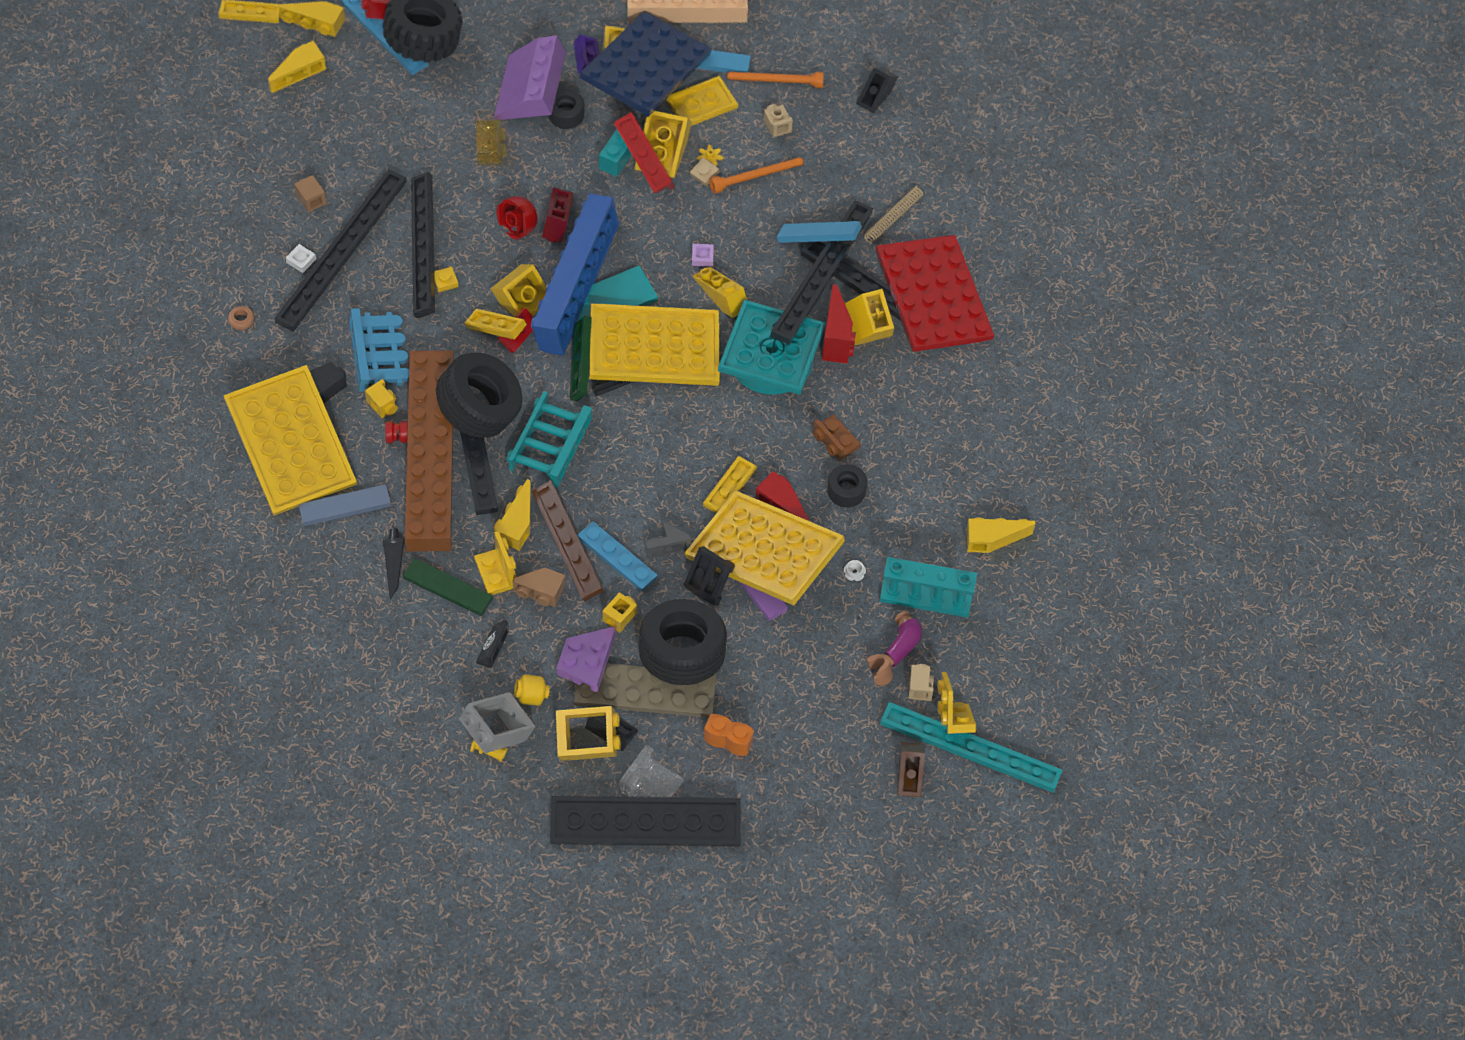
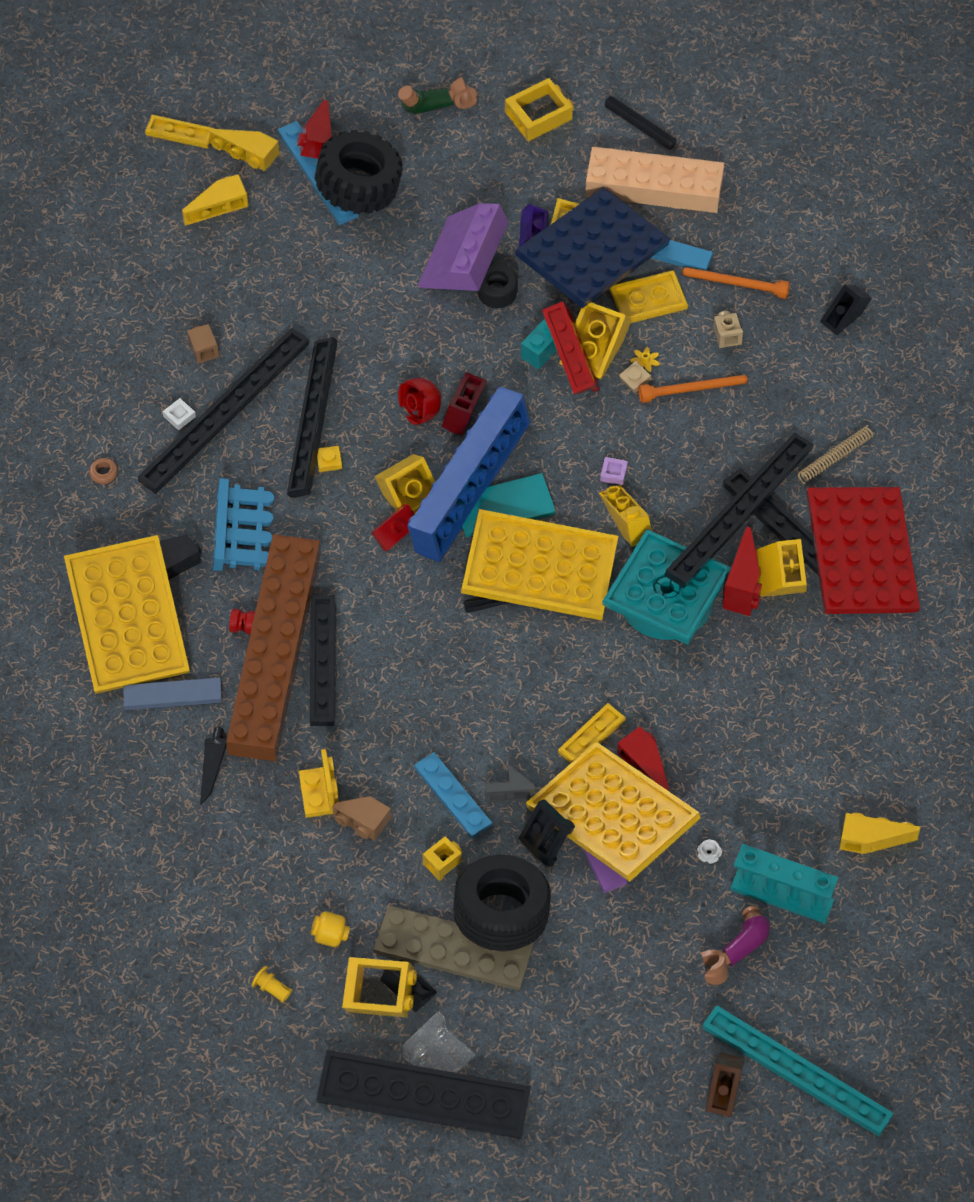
camera: 15 degrees right, 0 degrees up
(381, 399) = (233, 582): yellow brick -> none
(447, 587) = (264, 801): dark green tile -> none
(464, 409) = (353, 577): black tyre -> none
(489, 142) = (406, 312): clear yellow brick -> none
(493, 644) = (300, 872): black slope -> none
(495, 323) = (371, 516): yellow tile -> none
(505, 706) = (302, 951): light grey window -> none
(516, 521) = (351, 740): yellow slope -> none
(563, 454) = (417, 672): teal fence -> none
(567, 541) = (402, 770): reddish brown plate -> none
(580, 358) = (456, 568): dark green tile -> none
(586, 657) = (396, 902): medium lavender wing -> none
(727, 734) = (527, 1011): orange brick -> none
(819, 232) = (746, 463): dark azure tile -> none
(835, 436) = (719, 697): dark orange bracket -> none
(845, 497) = (720, 768): black tyre -> none
(921, 683) = (756, 989): tan brick -> none
(957, 715) = (787, 1033): yellow bracket -> none

